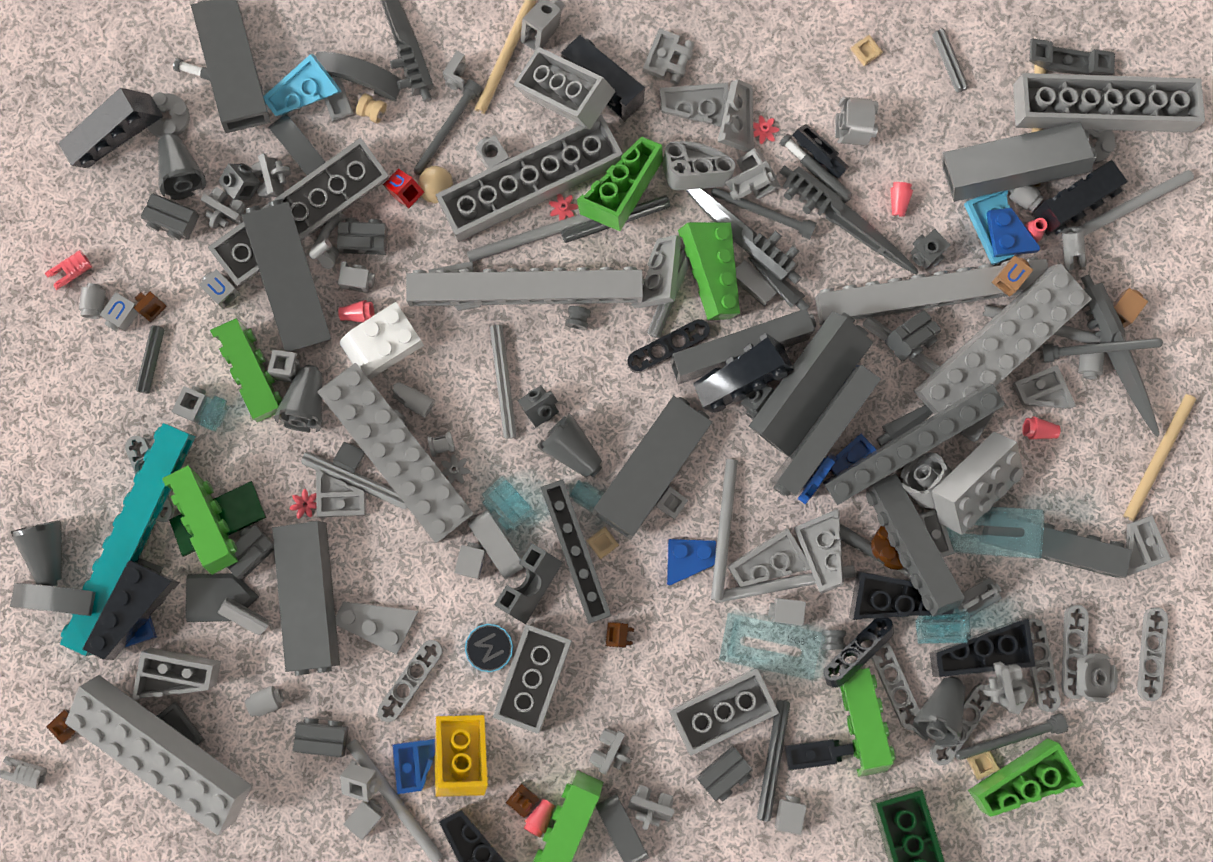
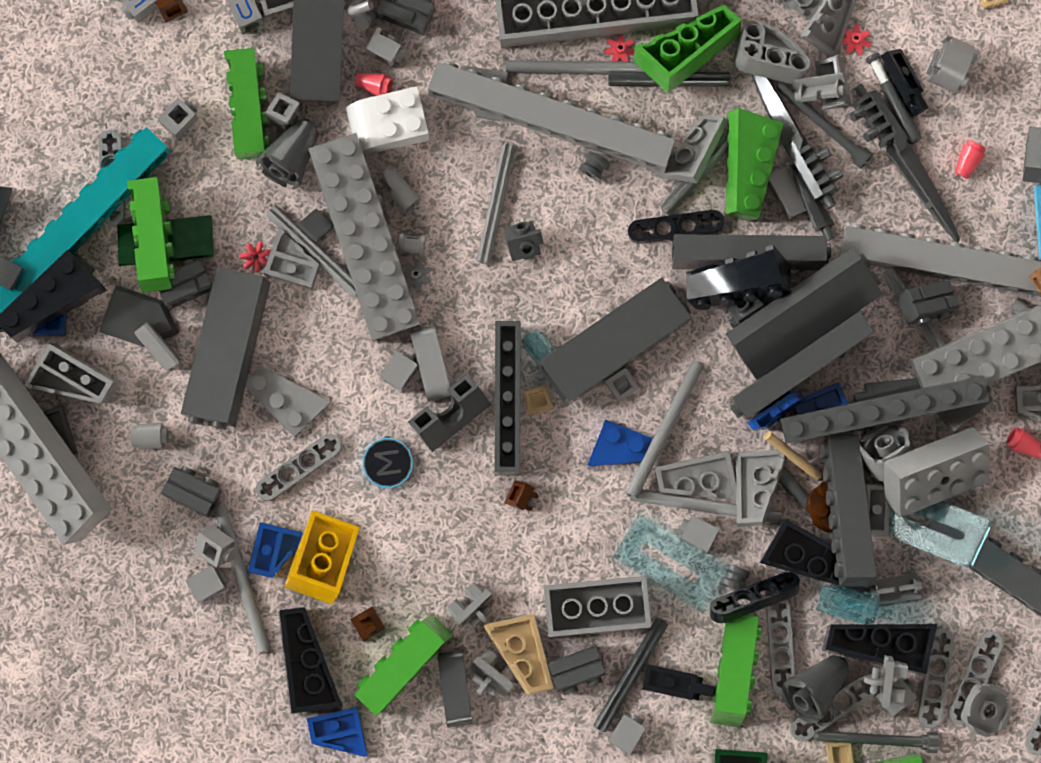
camera: 25 degrees right, 0 degrees up
(150, 359) = (152, 59): dark grey axle -> none
(213, 413) = (197, 135): clear light blue brick -> none
(507, 503) = (457, 327): clear light blue brick -> none
(532, 679) = (420, 507): light grey brick -> none
(539, 819) = (378, 646): coral cone -> none
(571, 447) = (541, 293): dark grey cone -> none
(671, 776) = (523, 652): none -> tan wing
(845, 512) = (792, 455): none -> tan bar
(929, 249) = (984, 215): dark grey brick -> none

